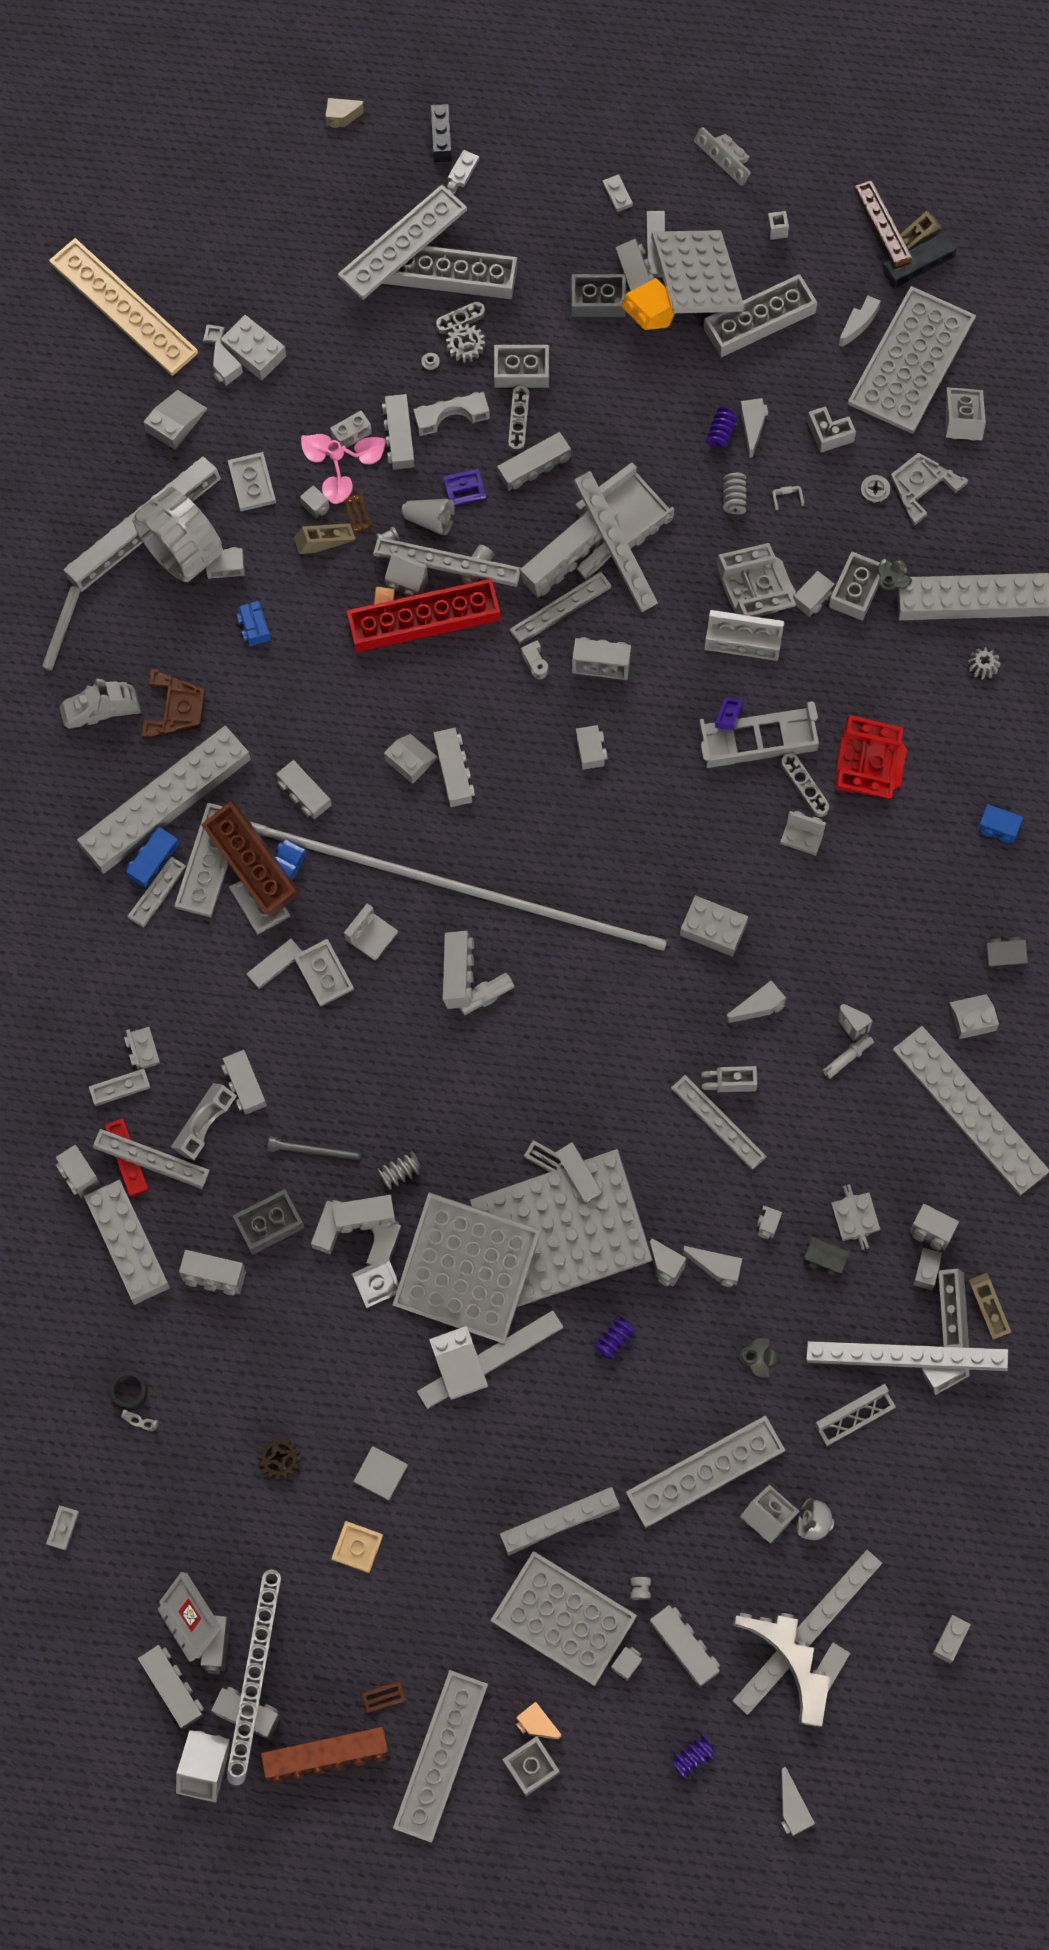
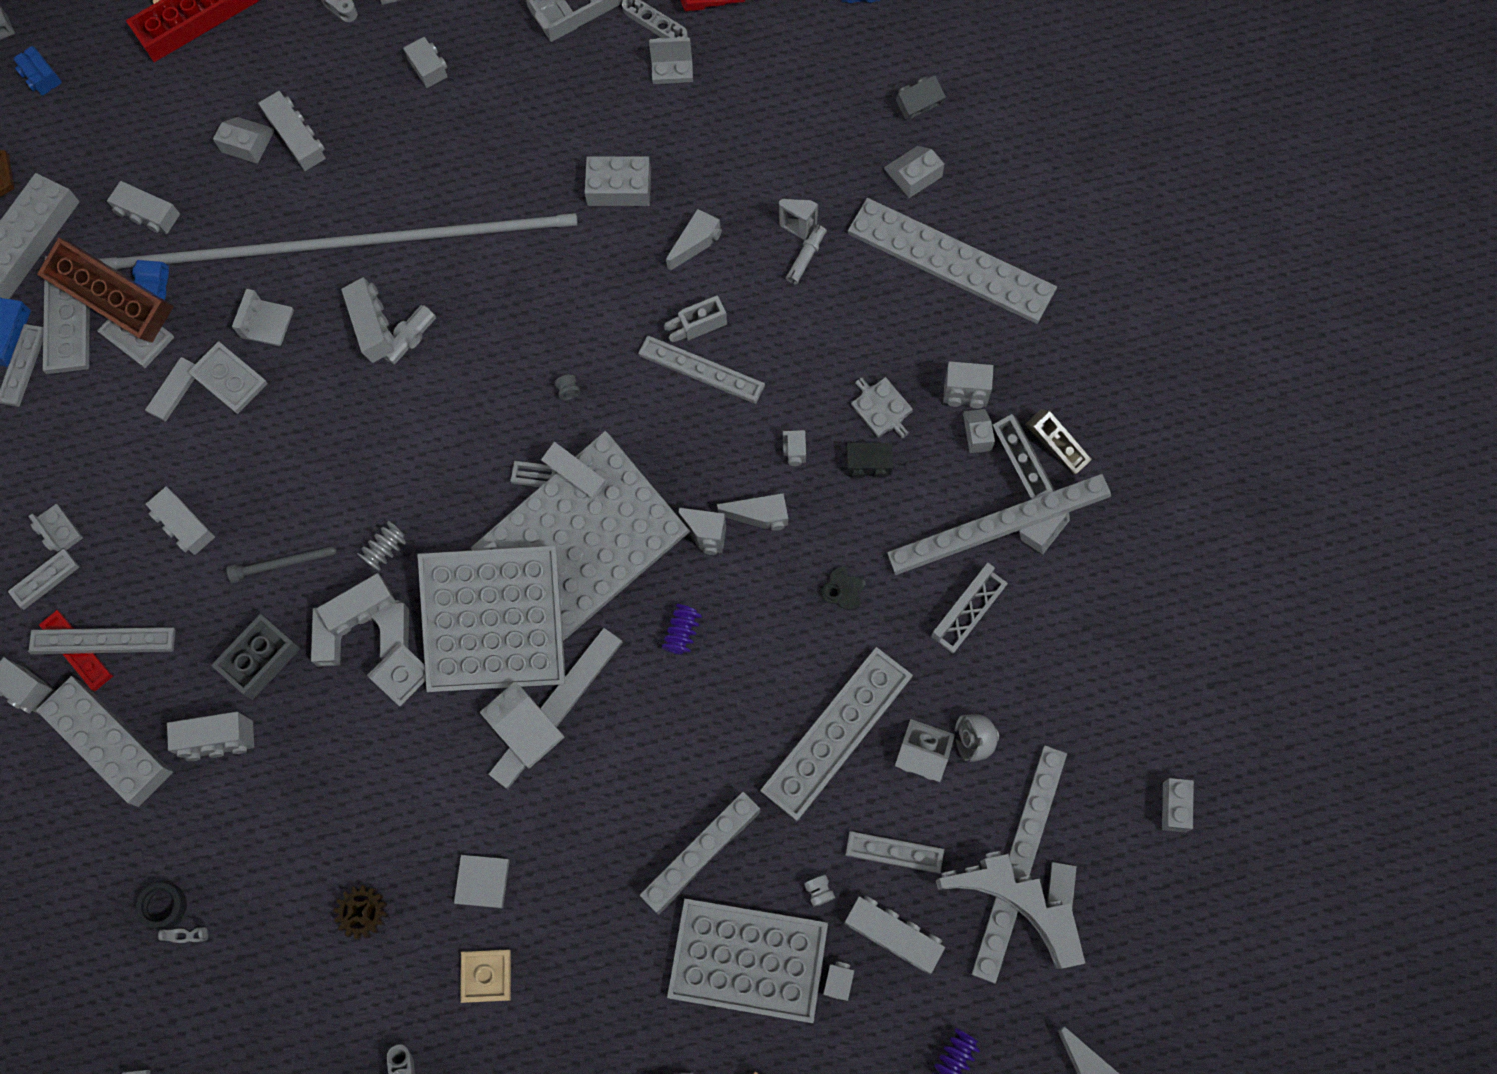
camera: 20 degrees left, 0 degrees up
(191, 1138) = (142, 591): light grey arch -> none
(600, 1094) = (567, 387): none -> dark grey wheel
(712, 1583) = (895, 852): none -> light grey tile

